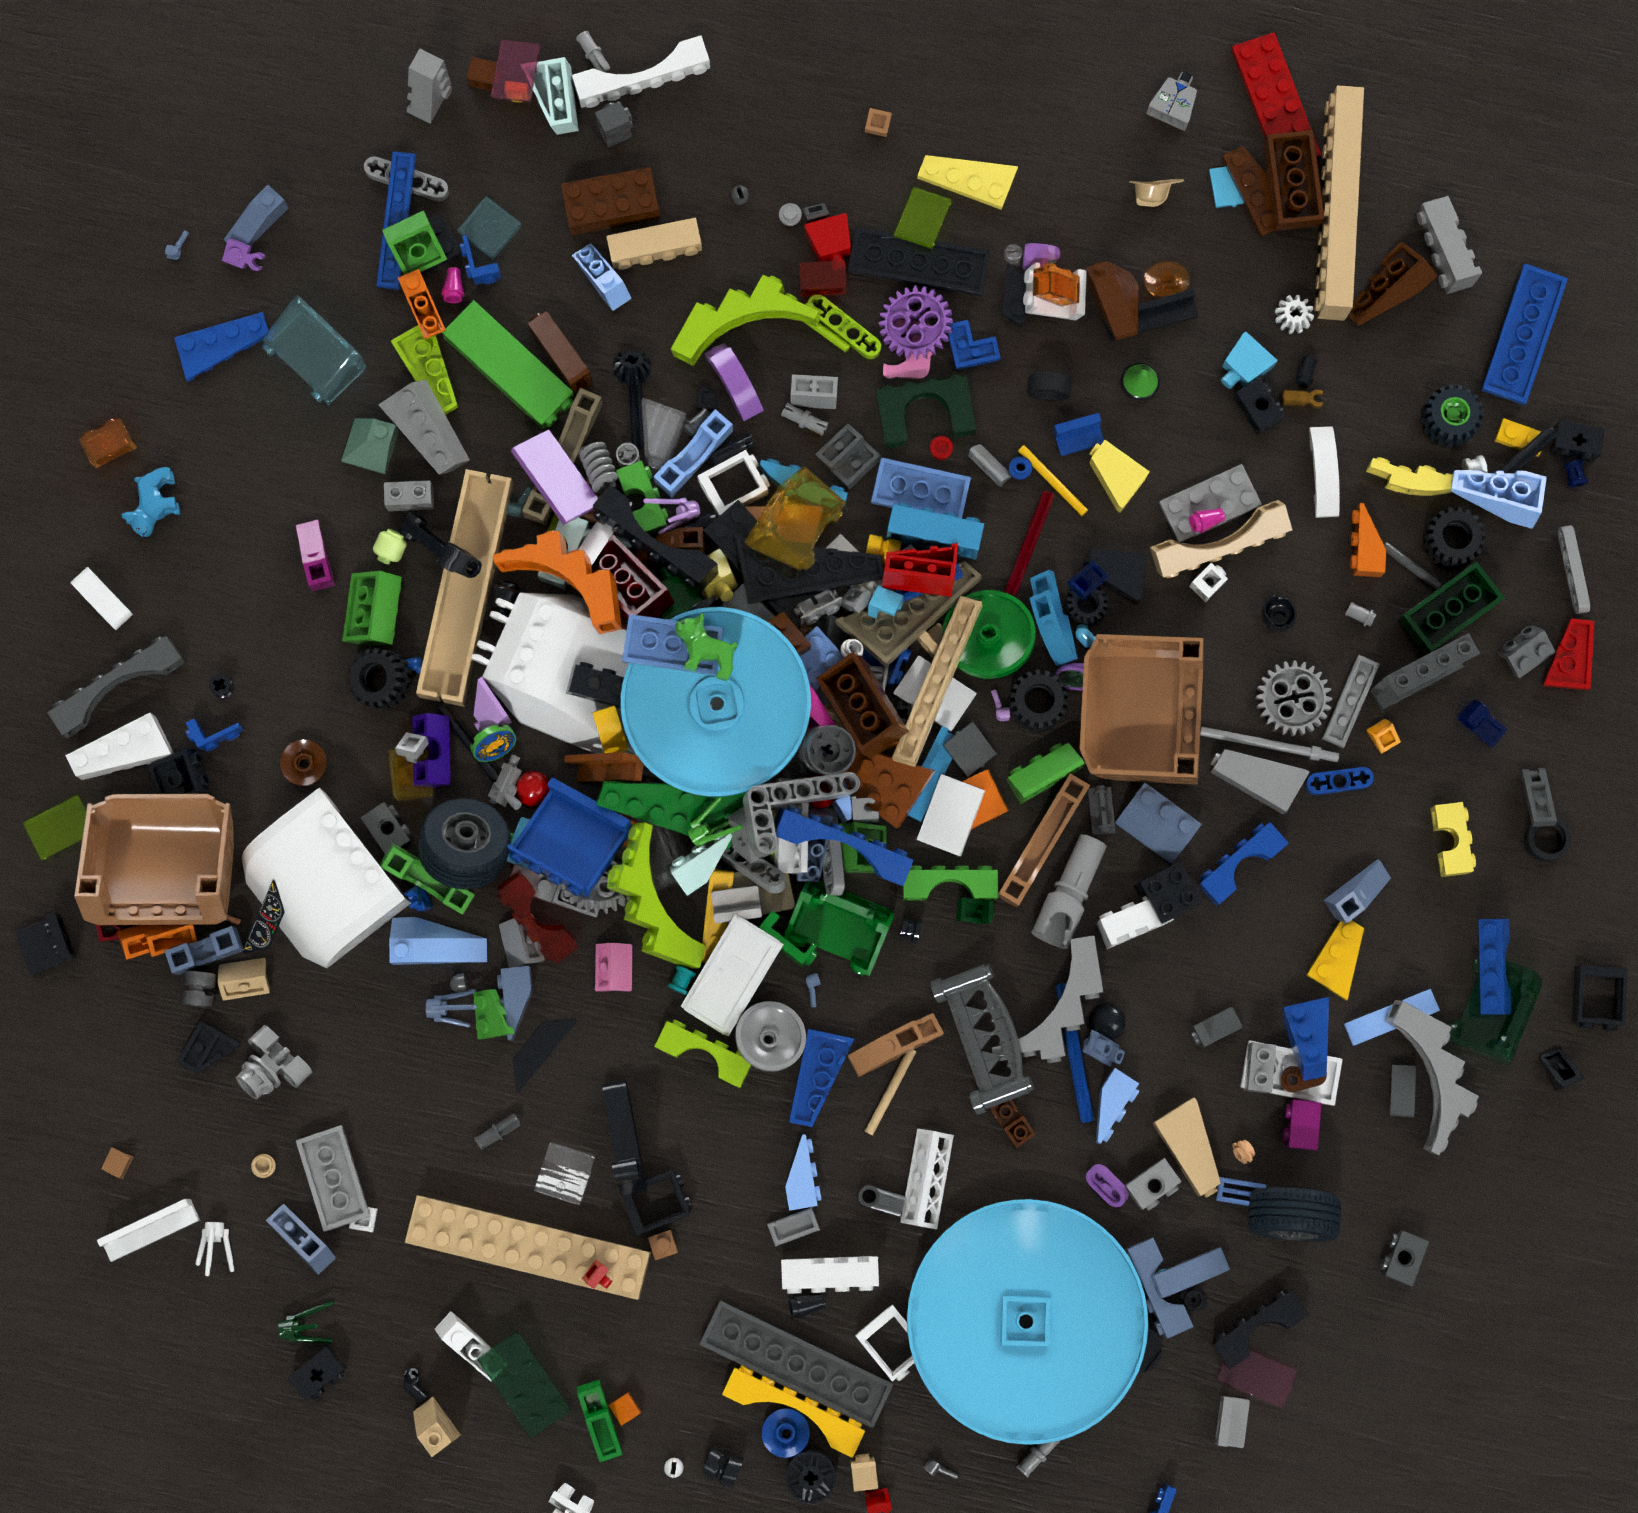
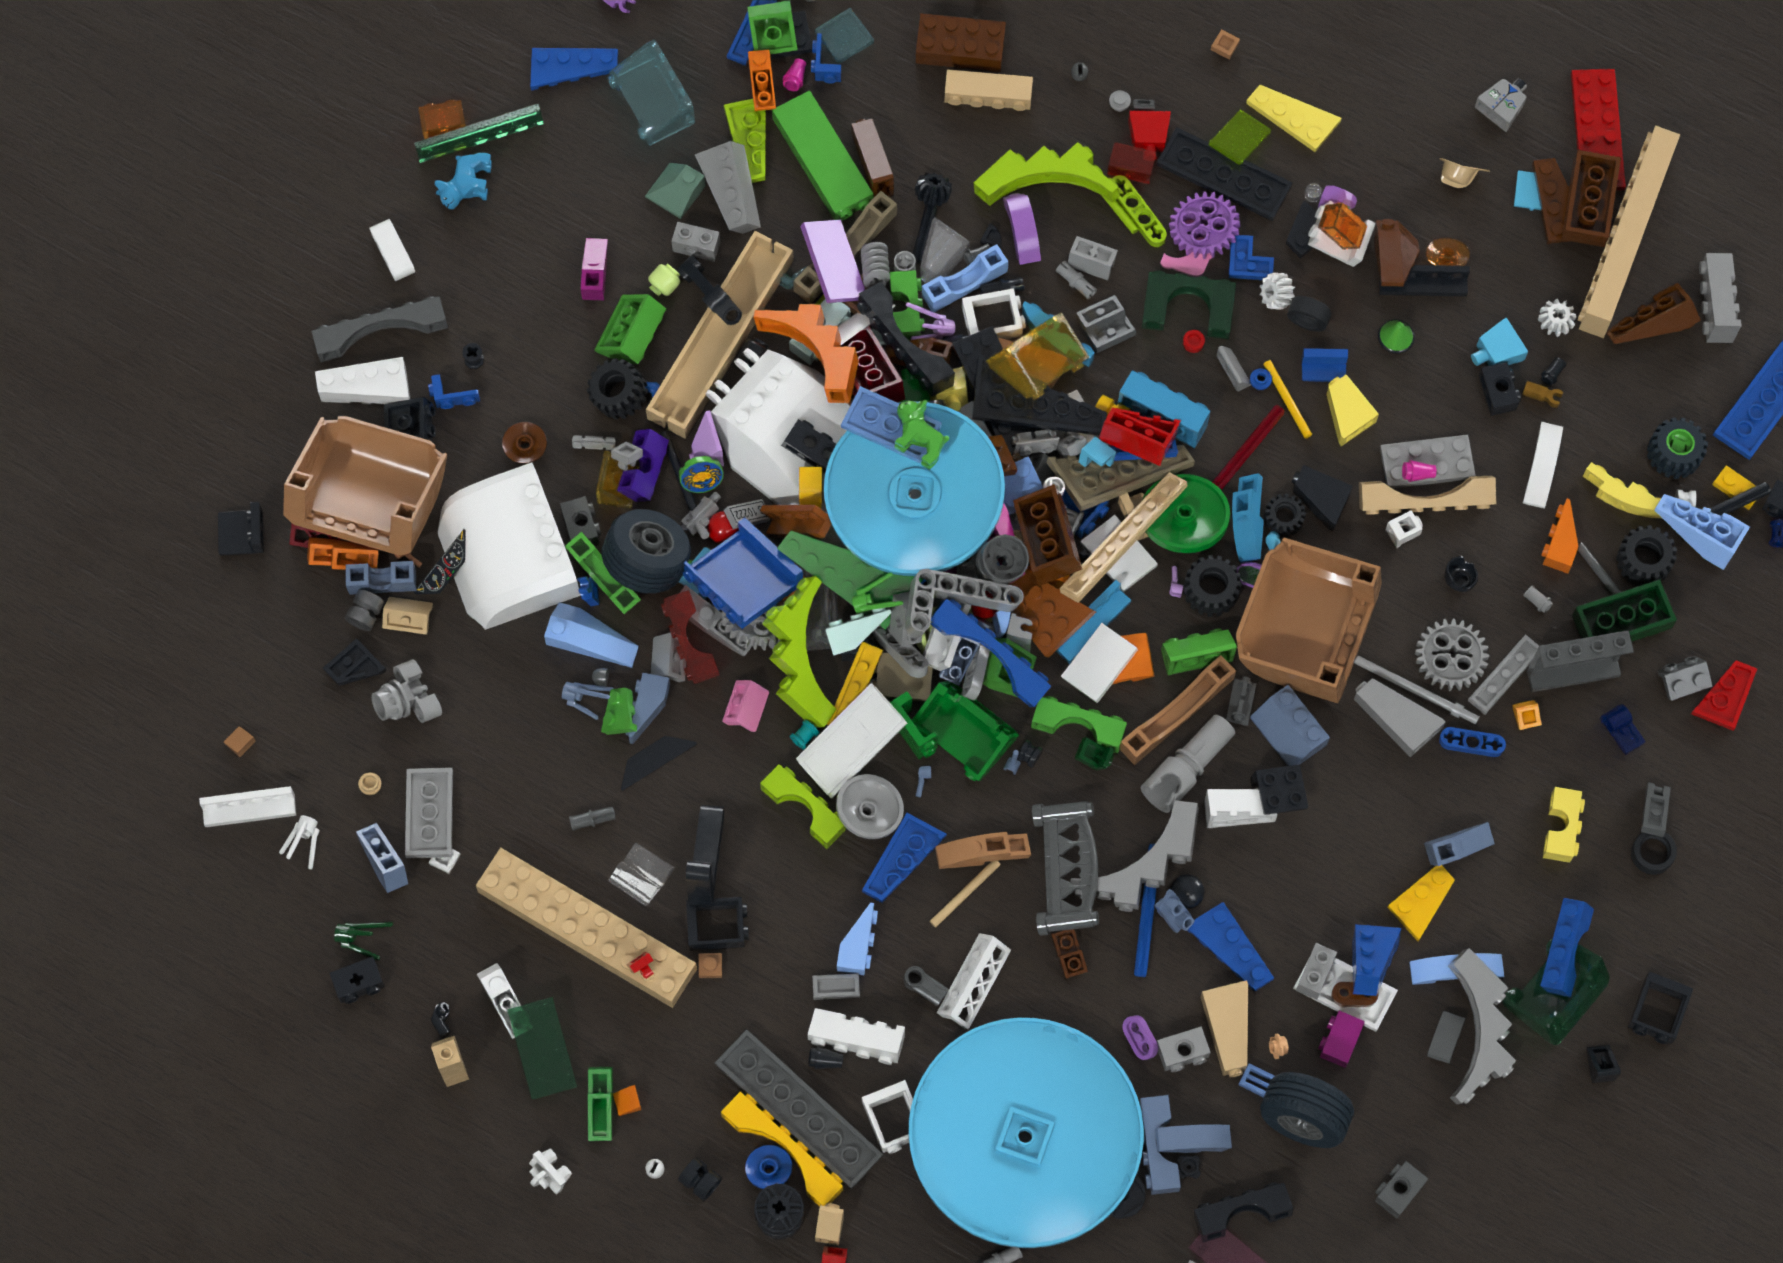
camera: 20 degrees right, 10 degrees down
(57, 827) = (285, 435): clear neon green piece -> none
(149, 446) = (479, 133): none -> clear green plate
(373, 739) = (593, 442): none -> light grey axle
(551, 767) = (749, 510): none -> light grey tile
(602, 277) = (932, 105): light blue slope -> none
(738, 901) = (883, 677): light grey panel -> none
(896, 945) = (1012, 763): none -> sand blue hand
(920, 487) = (1163, 367): medium blue plate -> none
(933, 1466) = (897, 1242): flat silver hand -> none
(969, 749) = (1135, 611): dark grey piece -> none
(1010, 372) = (1277, 291): none -> white gear
(1087, 580) = (1290, 491): clear blue slope -> none
(1113, 1097) = (1173, 957): light blue slope -> none
(1161, 1059) = (1231, 946): none -> blue wing
(1215, 1028) = (1286, 927): dark grey bracket -> none
(1264, 844) = (1384, 776): blue arch -> none
(1574, 569) = (1752, 617): light grey beam -> none

